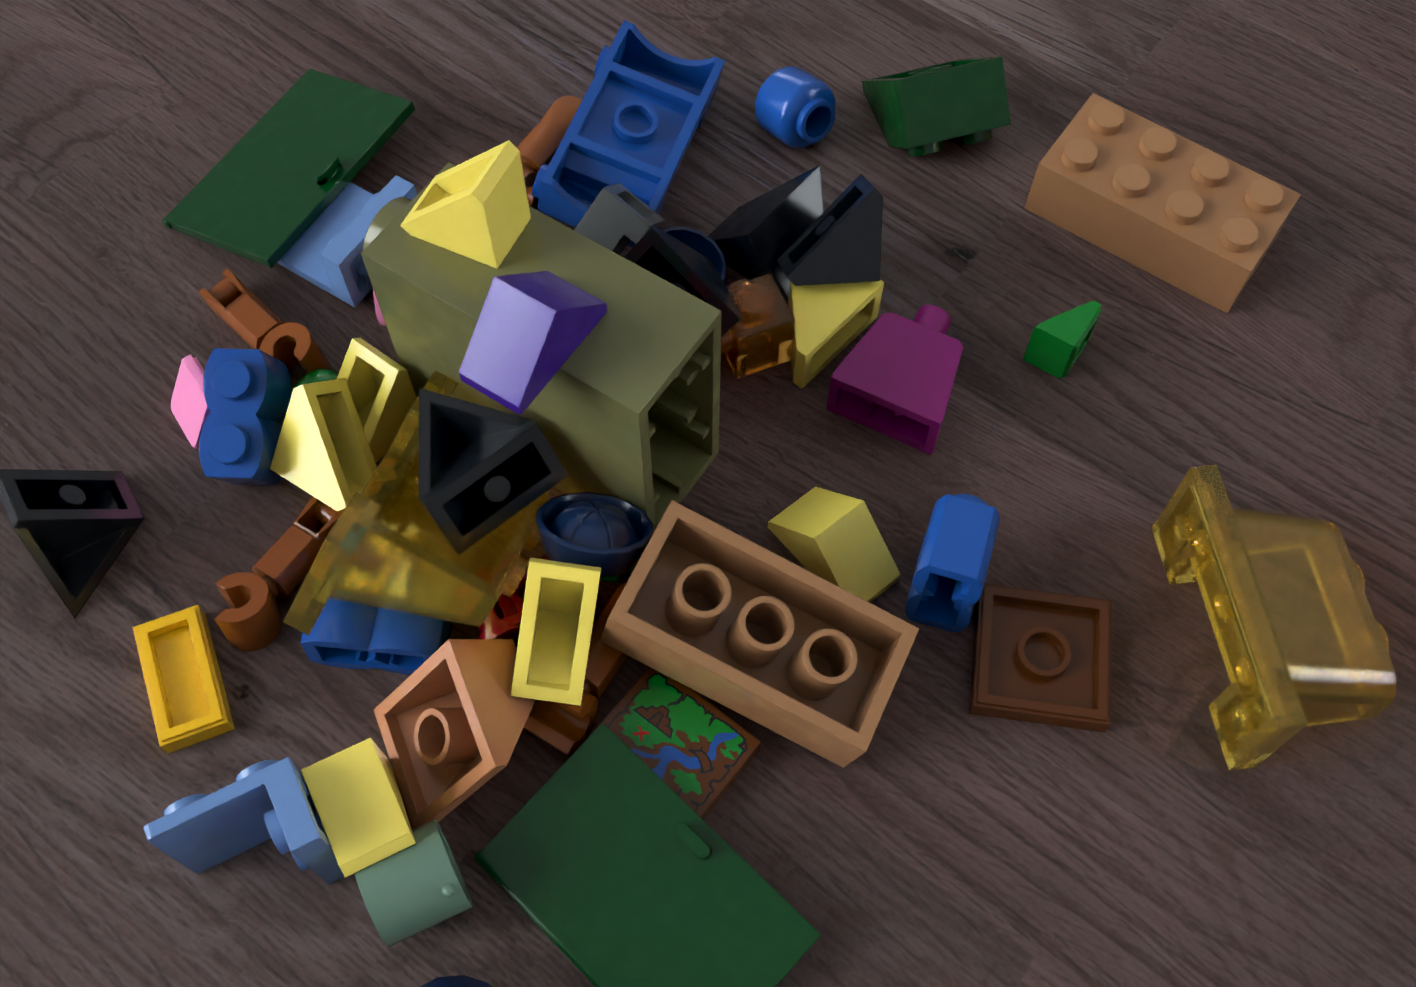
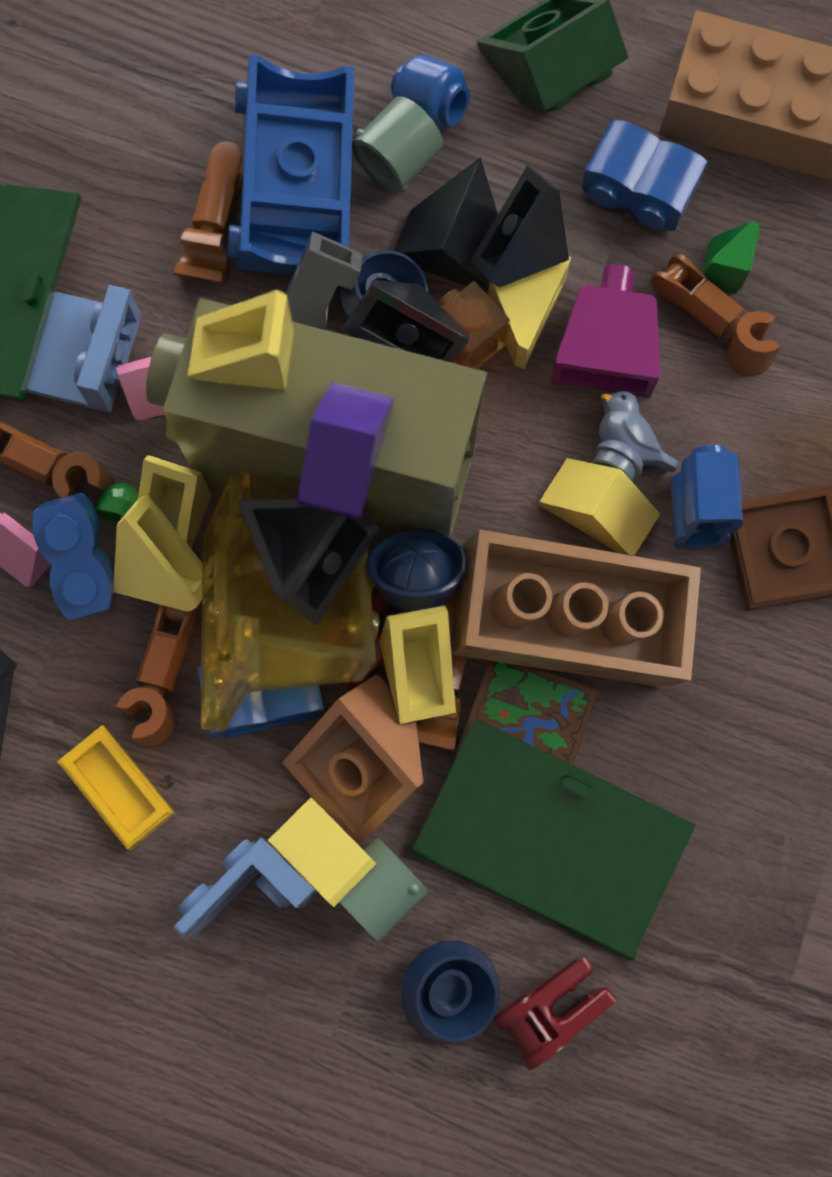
camera: 20 degrees left, 15 degrees up
(743, 140) = (397, 144): none -> sand green piece
(889, 482) = (628, 438): none -> sand blue animal
(992, 235) = (643, 175): none -> blue brick
(1062, 414) = (720, 315): none -> dark orange piece

